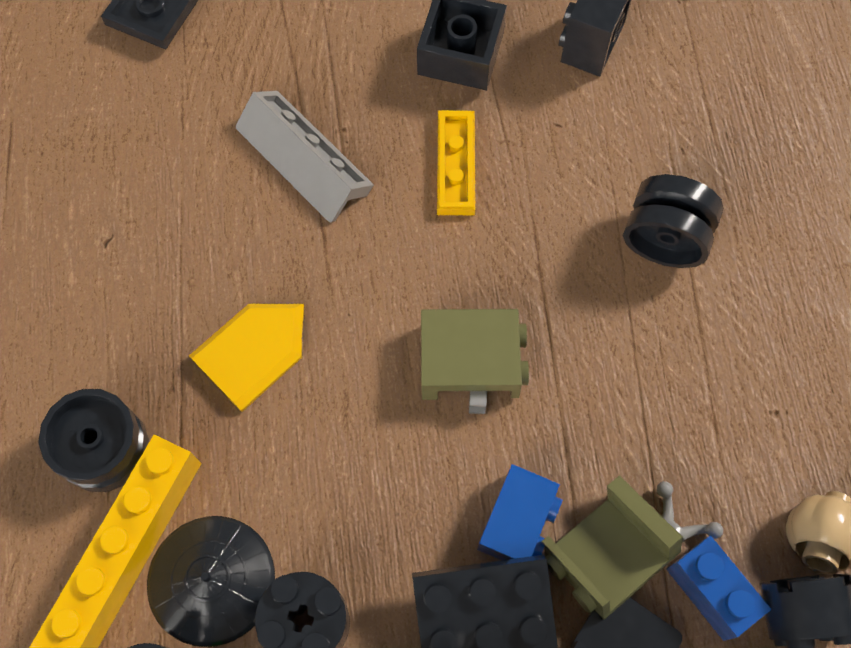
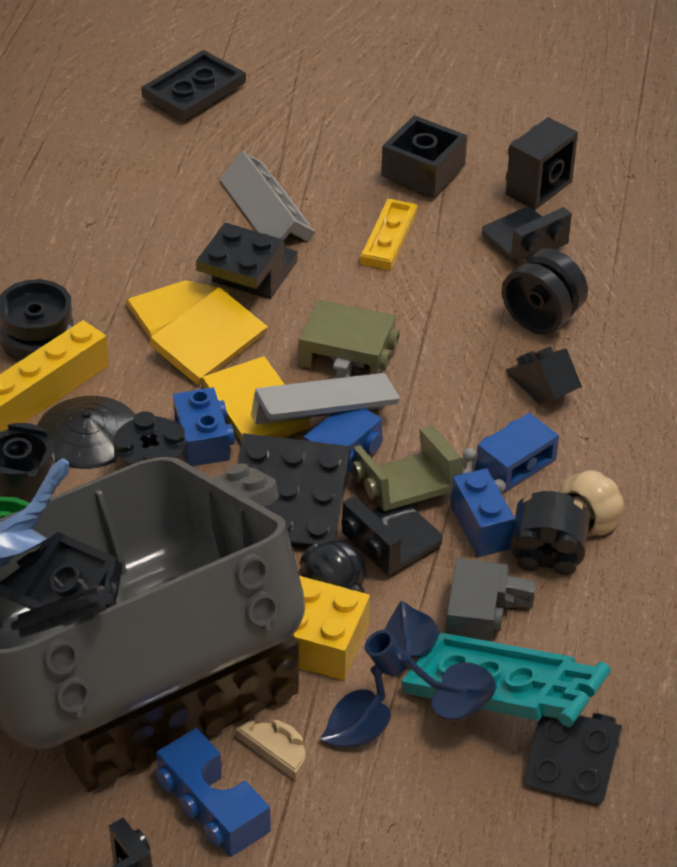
camera: 15 degrees right, 25 degrees down
(306, 392) = (208, 335): none -> yellow tile
(314, 267) = (247, 260): none -> black bracket
(348, 547) = (204, 426): none -> blue brick
(394, 478) = (237, 389): none -> yellow tile
(484, 477) = (322, 398): none -> light grey panel
(610, 123) = (528, 231): none -> black bracket
(709, 342) = (545, 374): none -> black slope
(718, 473) = (518, 450): none -> blue brick

